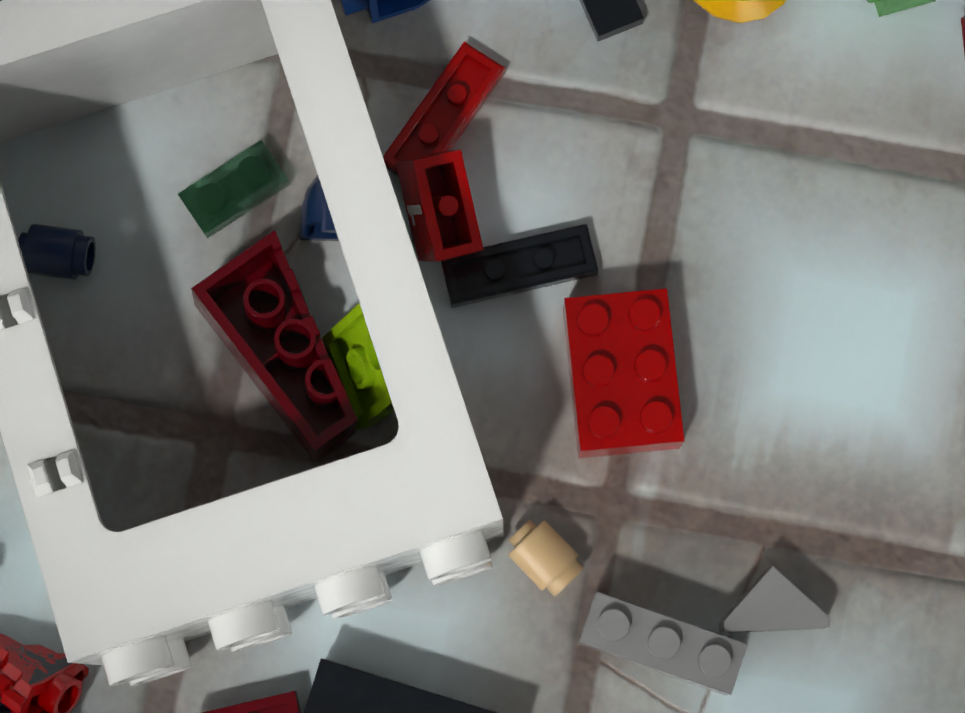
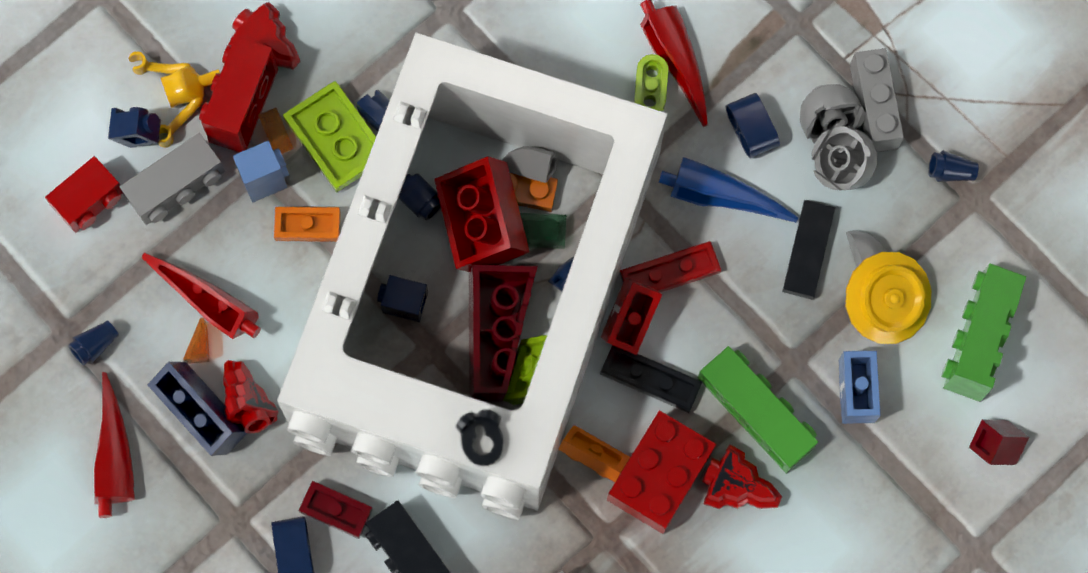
camera: 30 degrees right, 5 degrees down
(133, 395) = (403, 298): none -> dark blue brick
(153, 215) = (481, 214): none -> red brick
(166, 106) = (532, 163): none -> light grey brick
(182, 147) = (534, 193): none -> orange plate
(374, 478) = (490, 421): none -> black piece
(522, 412) = (593, 453): none -> orange plate
(544, 556) = (550, 535): tan brick -> none
(681, 206) = (757, 409): none -> bright green brick
(724, 317) = (737, 483): none -> red rock
(784, 87) = (859, 387): none -> medium blue brick

